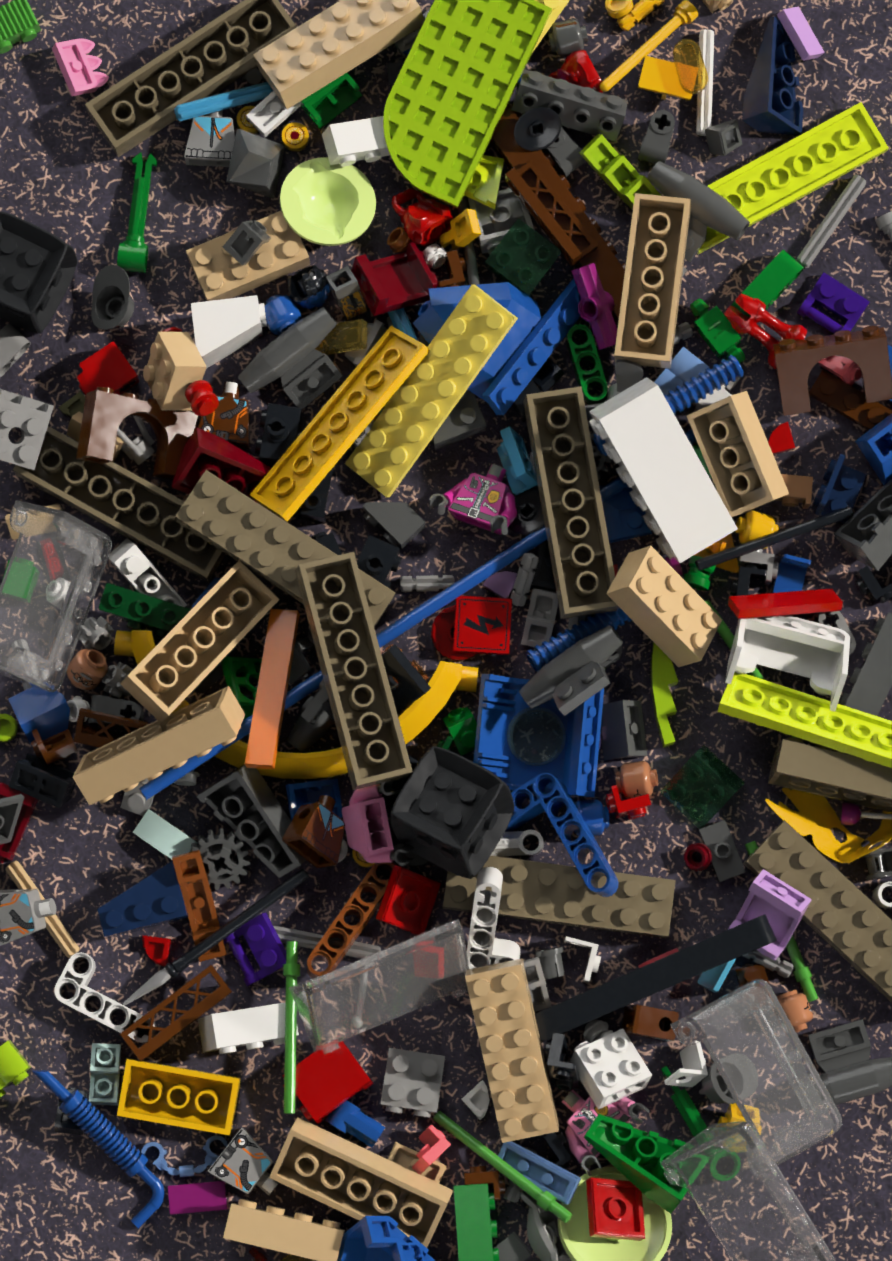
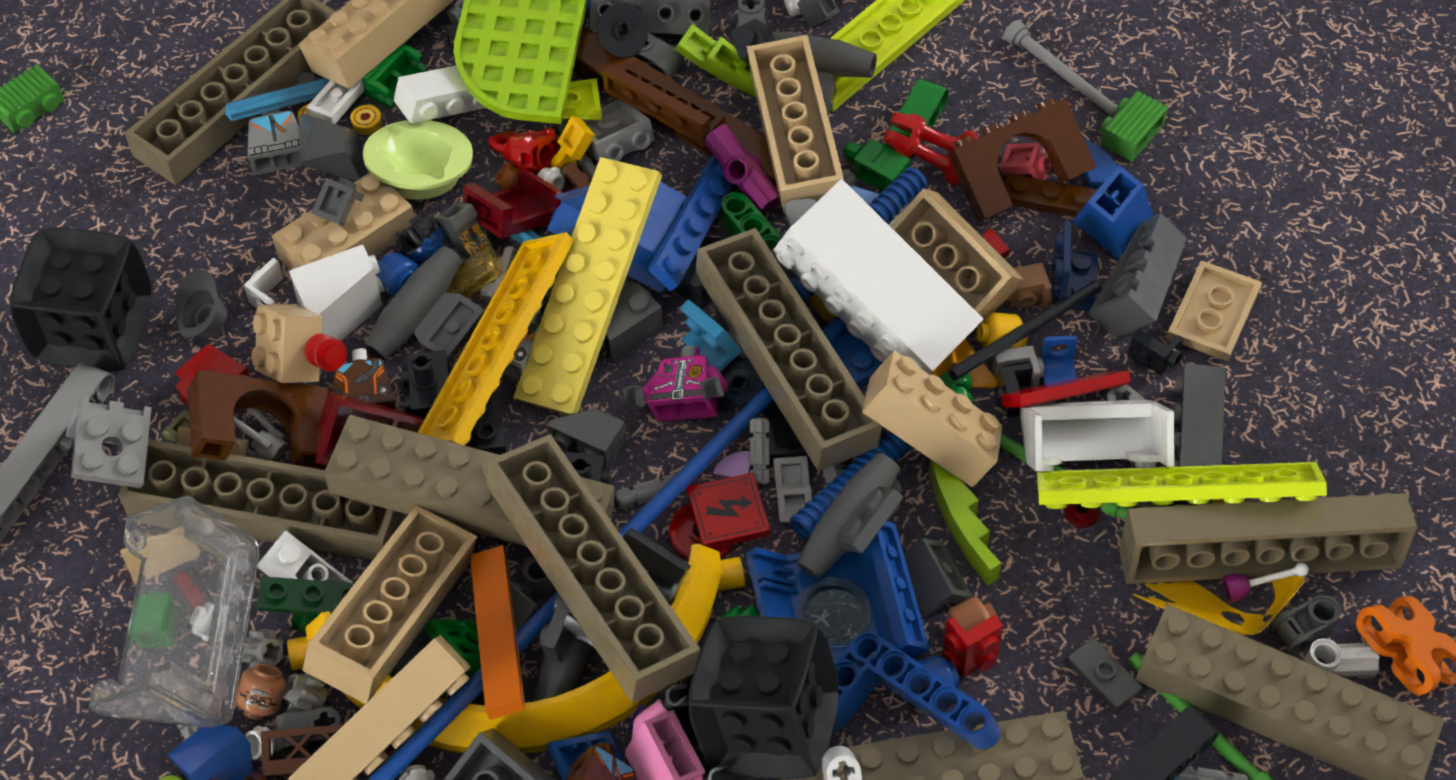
camera: 15 degrees left, 25 degrees down
(79, 67) = (109, 114): bright pink plate -> none
(133, 251) = (212, 253): green piece -> none
(165, 288) = (262, 282): none -> white bracket
(512, 844) = (852, 733): white piece -> none
(522, 257) = (649, 144): clear green bracket -> none
(647, 180) = (750, 34): none -> black brick
(690, 859) = (1069, 682): dark red plate -> none
(702, 787) = (1050, 612): clear green bracket -> none
(782, 906) = (1211, 695): lavender panel -> none
(831, 221) = (959, 47): light grey axle -> none
(836, 299) = (989, 110): dark purple plate -> none

